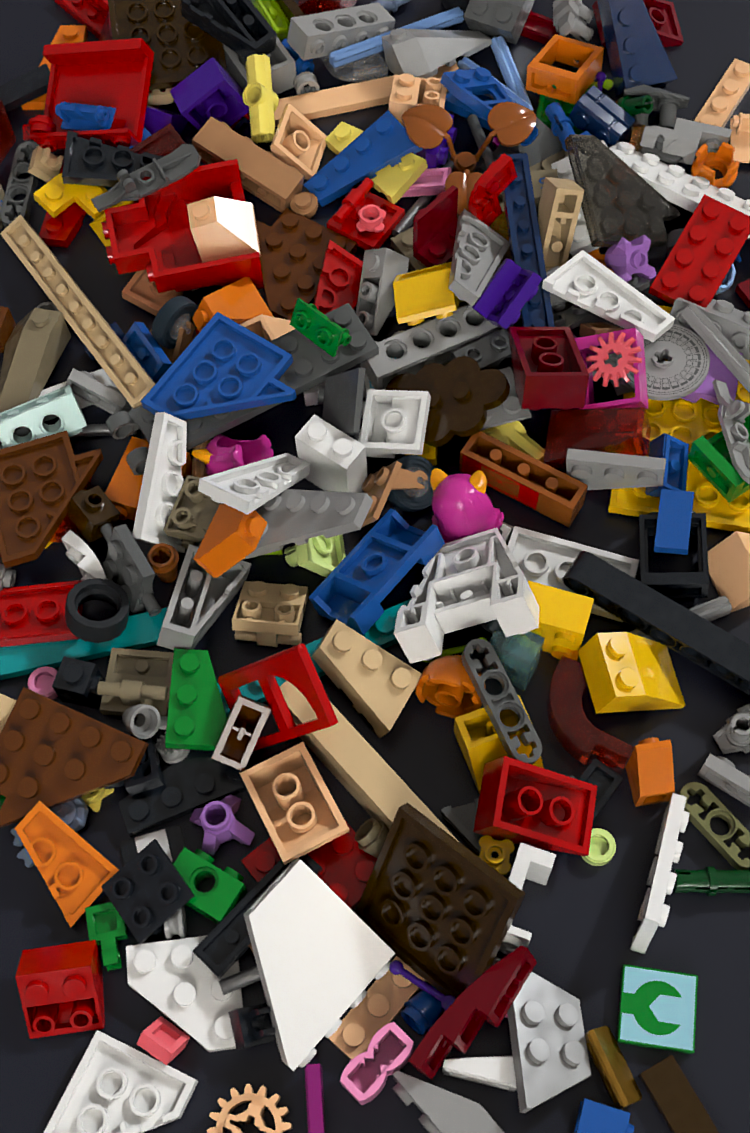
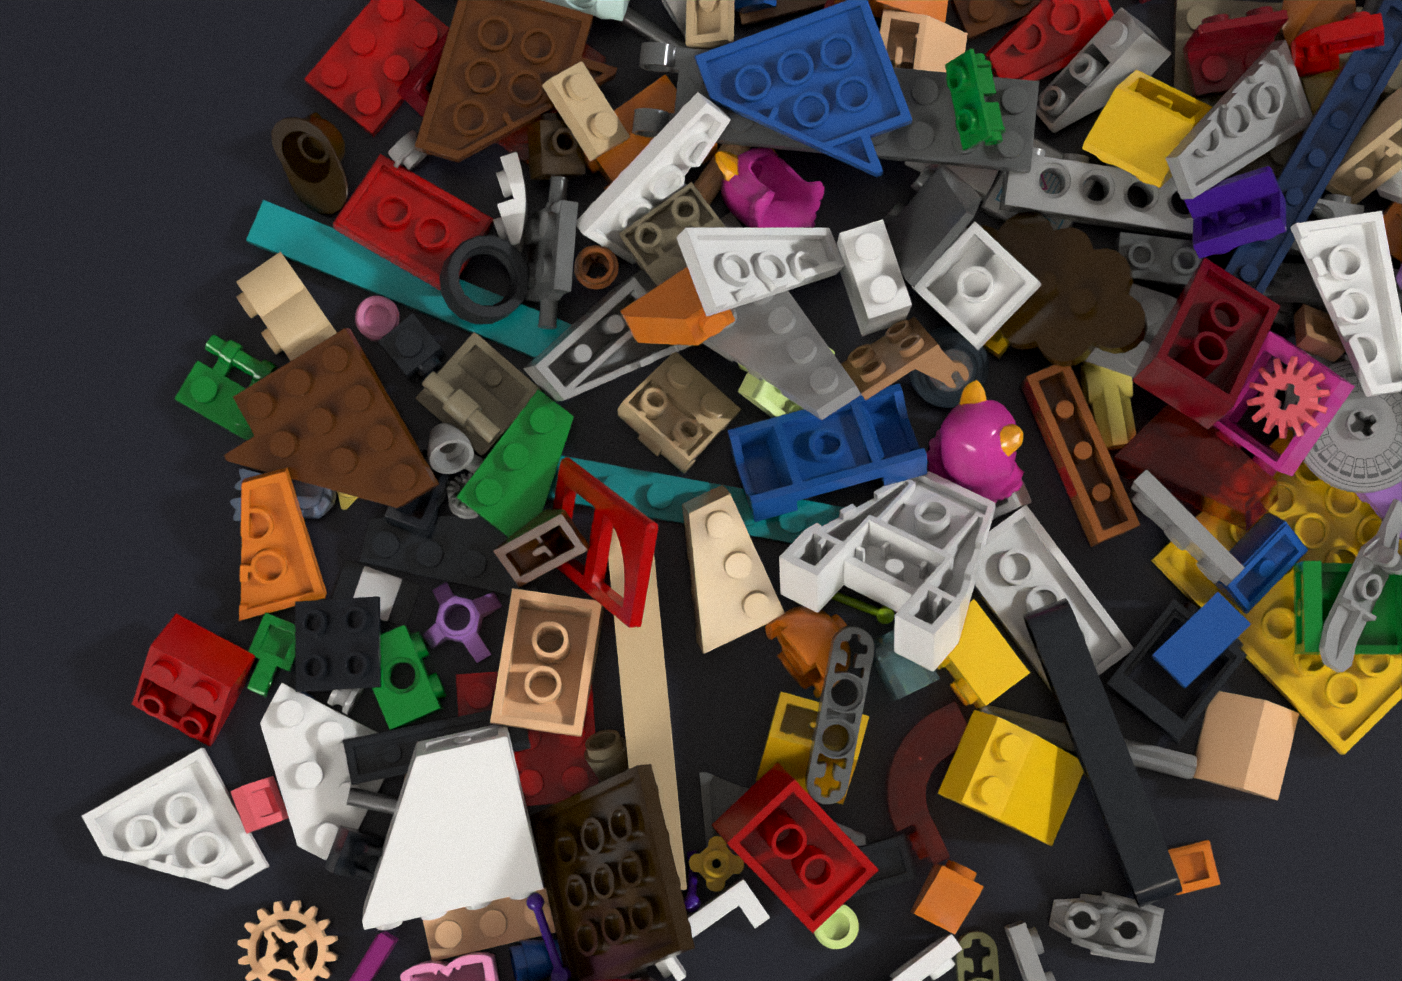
camera: 30 degrees right, 20 degrees up
(96, 477) = (585, 111): none -> tan plate

